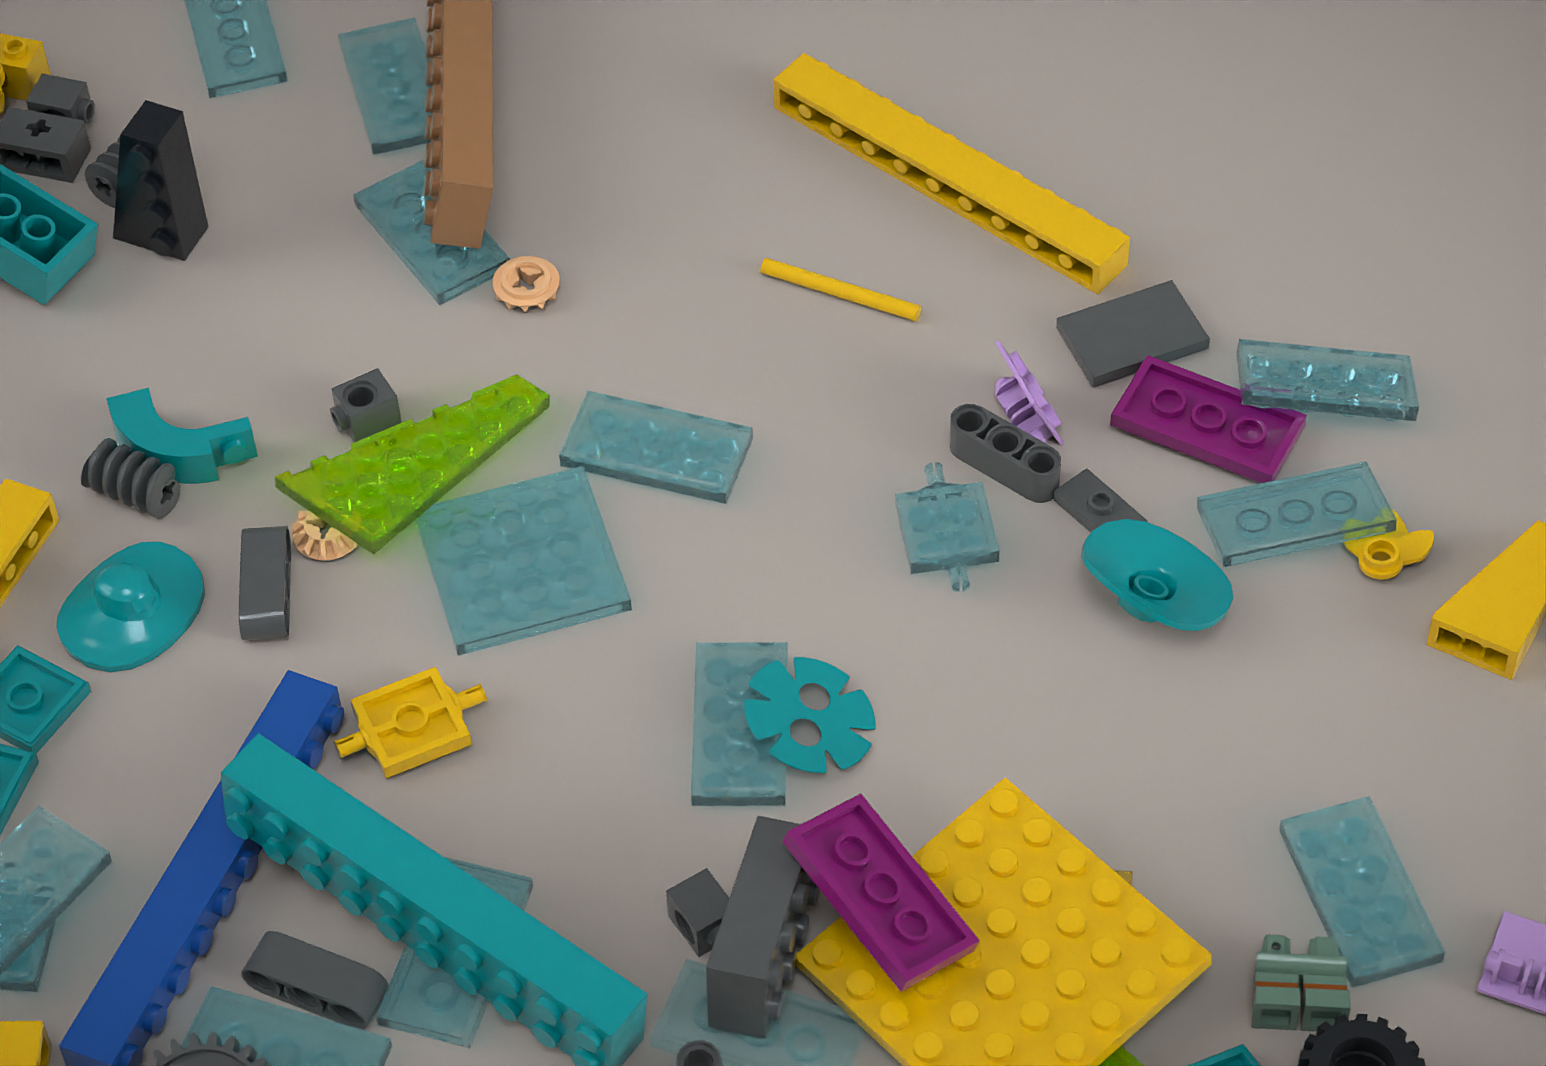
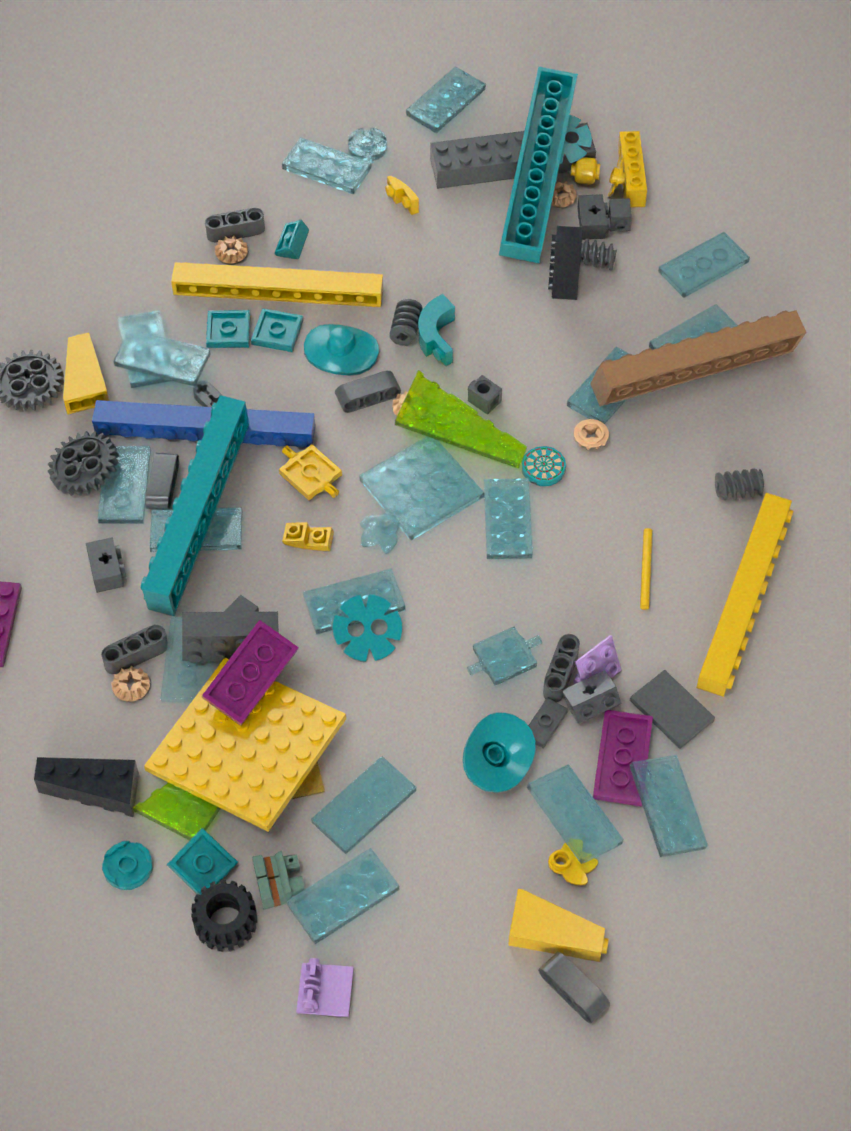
camera: 70 degrees right, 5 degrees up
(139, 853) = (203, 399): none -> dark grey beam
(558, 765) = (306, 537): none -> yellow slope
(563, 366) = (543, 465): none -> teal tile
(597, 651) = (377, 533): none -> clear light blue plate
(731, 114) = (739, 483): none -> dark grey piece
(1087, 420) = (591, 697): none -> dark grey brick
(1178, 819) = (363, 804): none -> clear light blue tile

